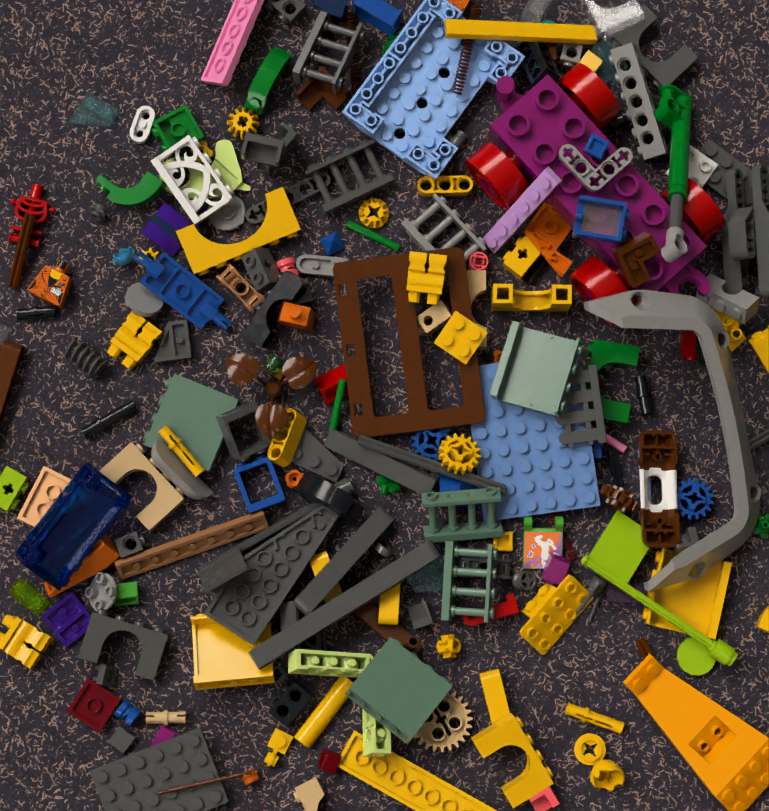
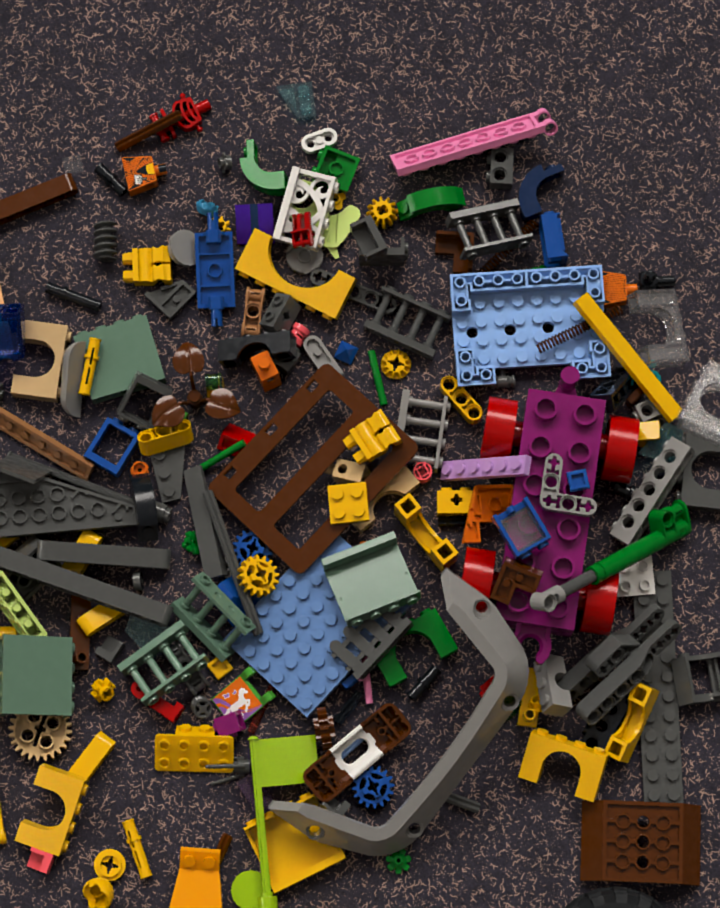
camera: 50 degrees right, 5 degrees down
(208, 194) = (301, 229): none -> red arm

